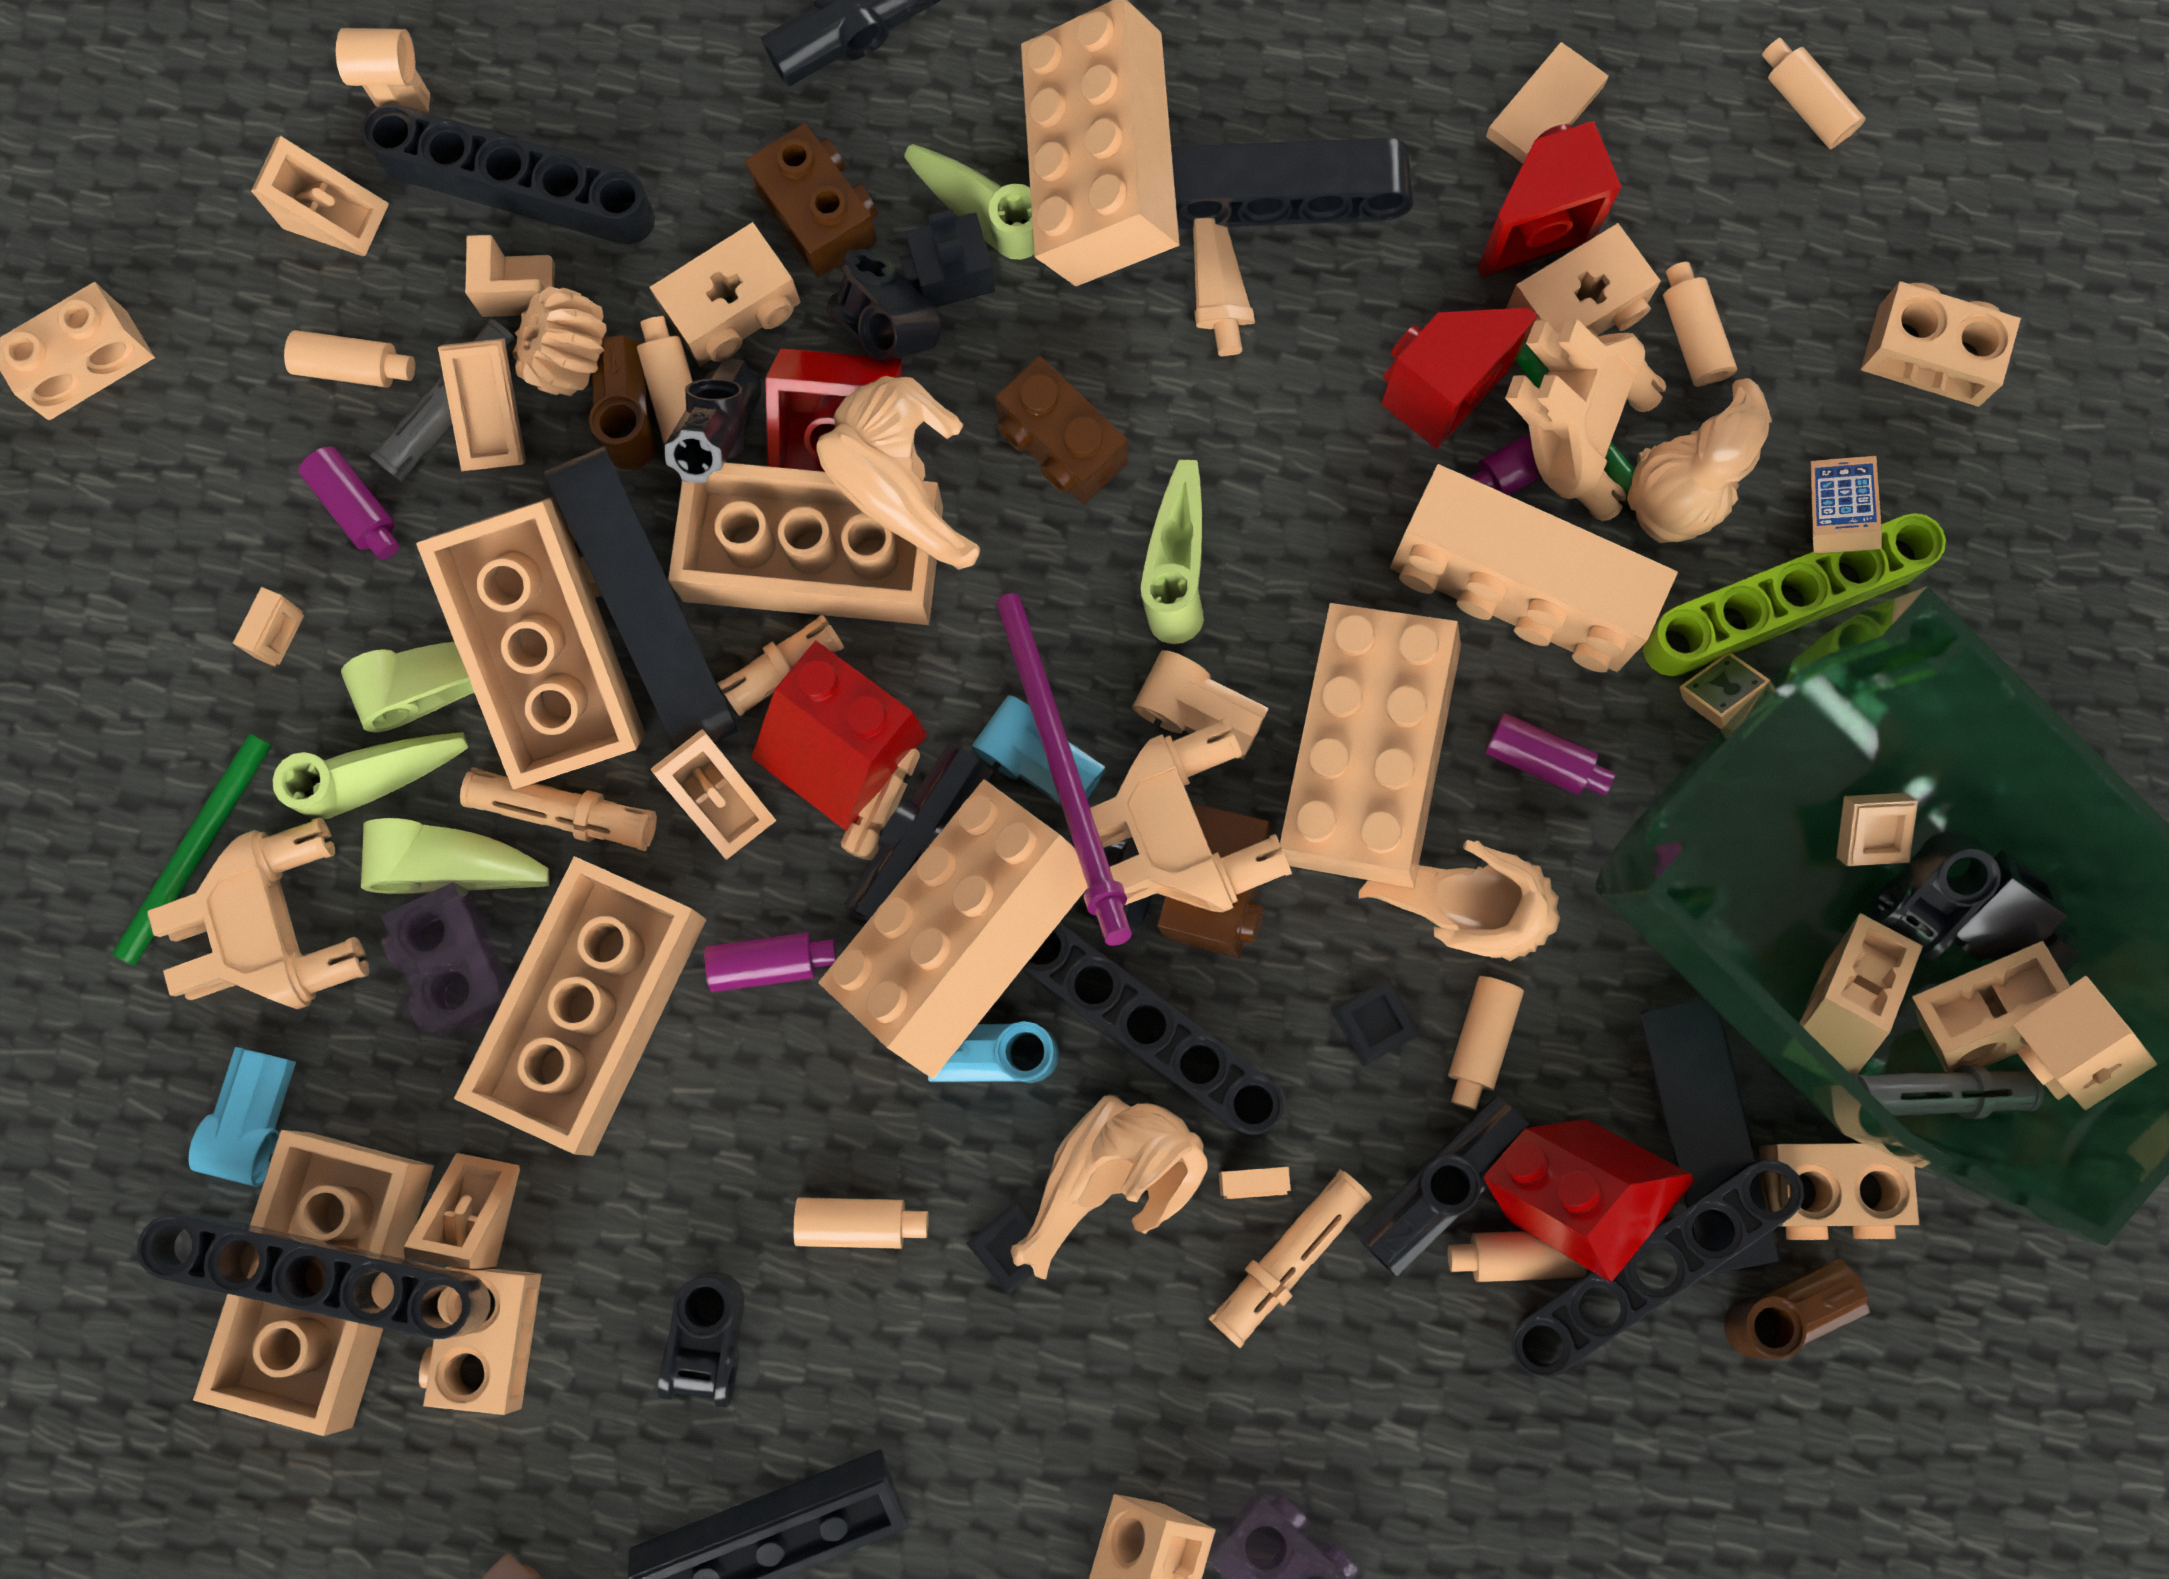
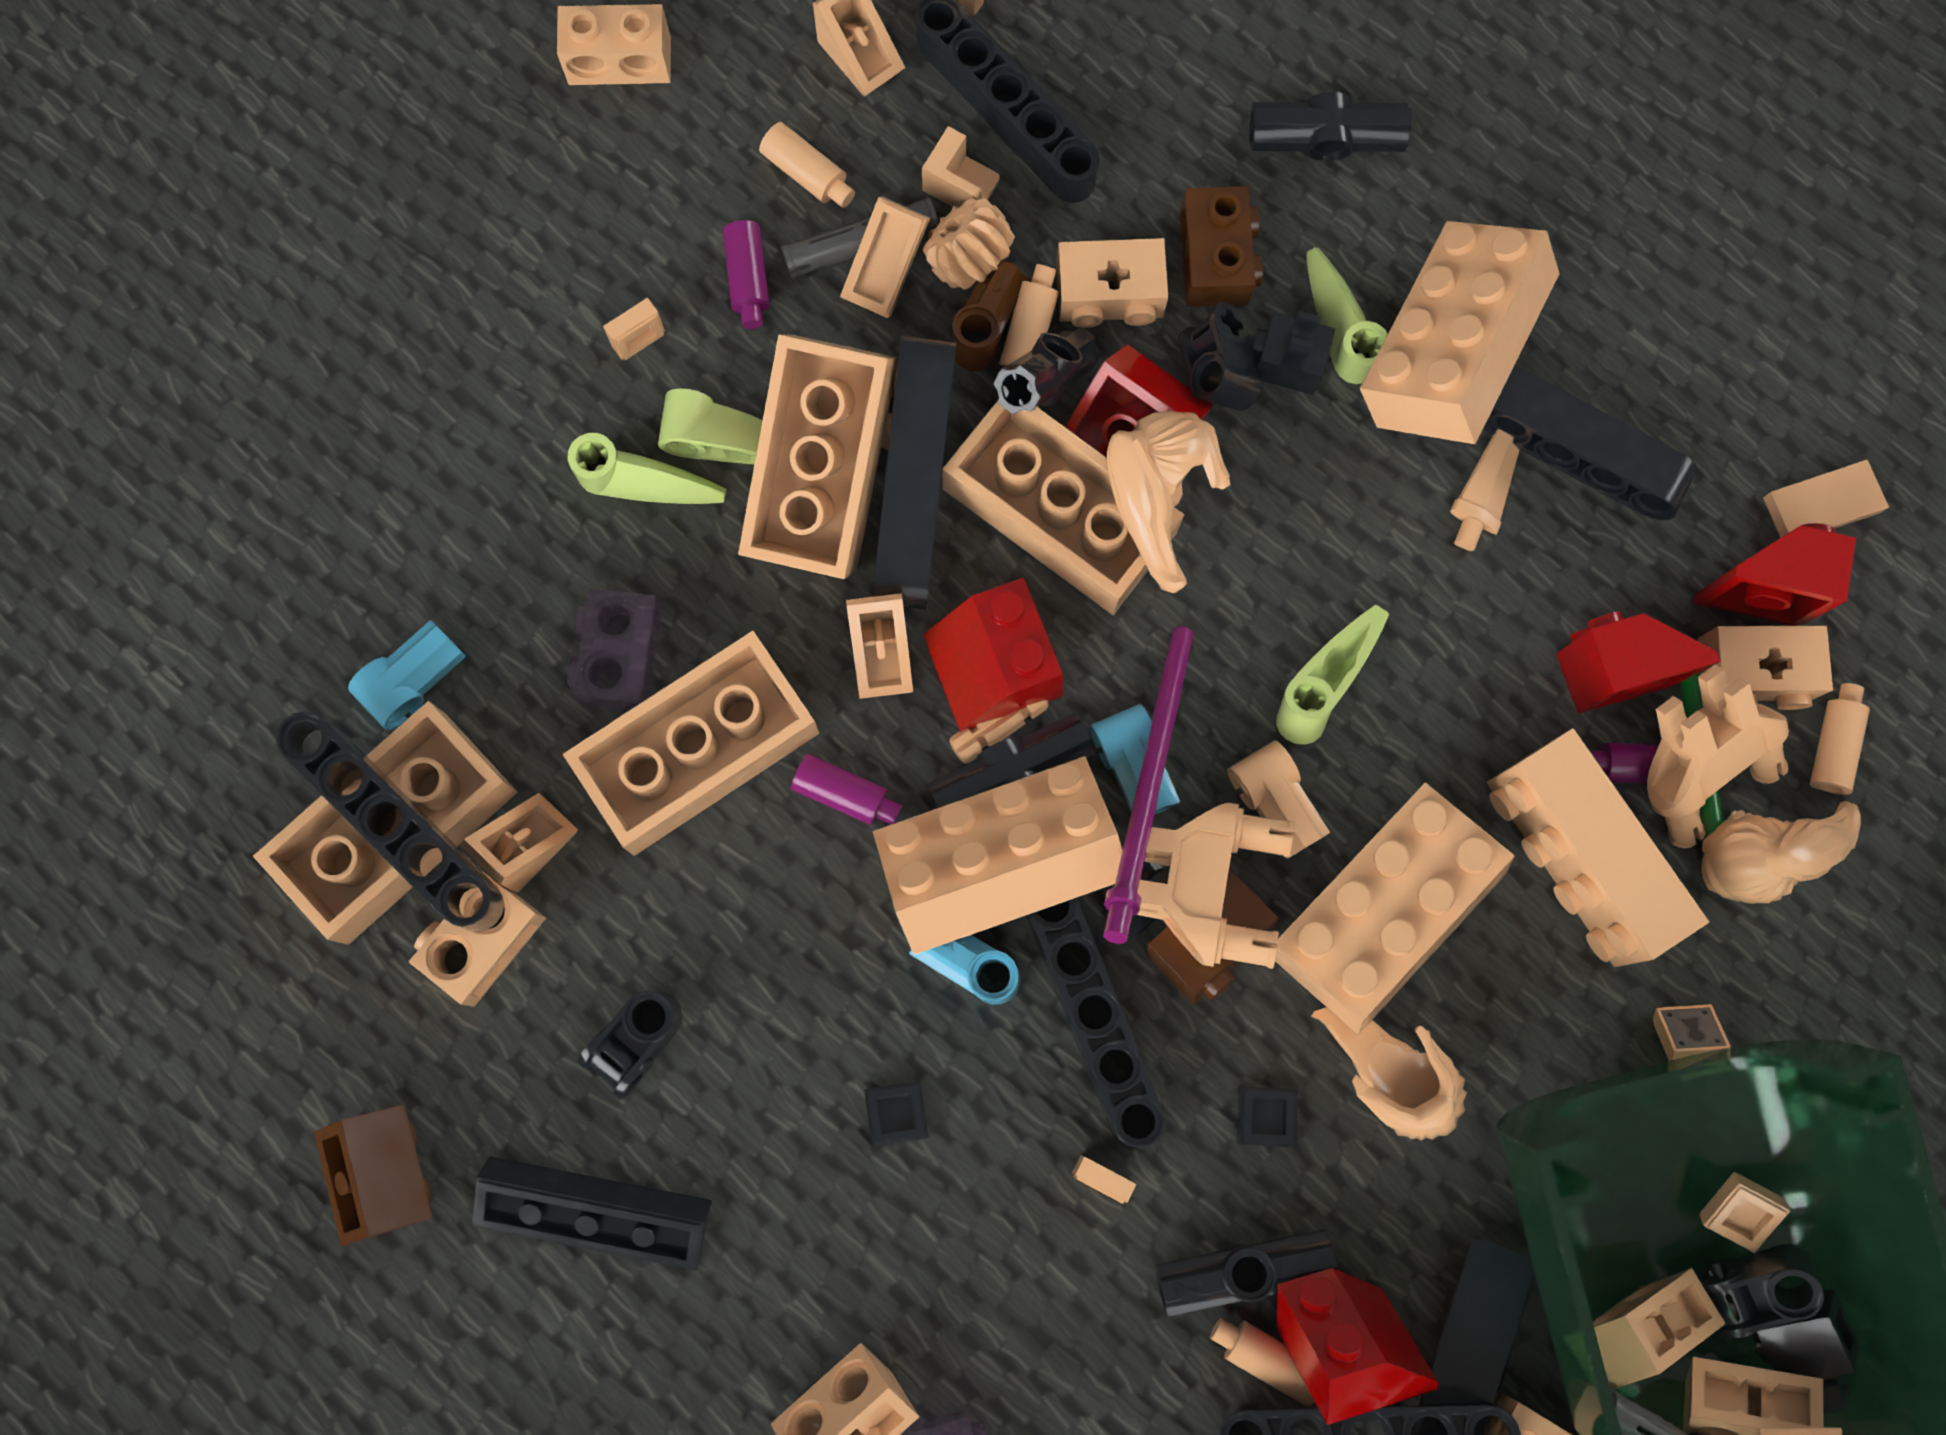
camera: 25 degrees right, 0 degrees up
(193, 846) = (484, 457): green bar -> none
(251, 924) = (493, 539): light nougat connector -> none
(420, 858) = (643, 564): yellowish green piece -> none
(584, 814) = (776, 602): light nougat pin -> none
(765, 673) = (976, 578): light nougat pin -> none
(856, 1223) = (793, 1024): light nougat cylinder -> none
(1061, 431) = (1299, 530): reddish brown brick -> none
(1109, 1154) = (1011, 1091): light nougat hair -> none
(1289, 1258) = (1094, 1252): light nougat pin -> none
(1484, 1039) = (1341, 1181): light nougat cylinder -> none
(1547, 756) = (1521, 998): magenta cylinder -> none
(1816, 580) = (1814, 989): lime beam -> none
(1845, 505) = (1873, 949): tile -> none

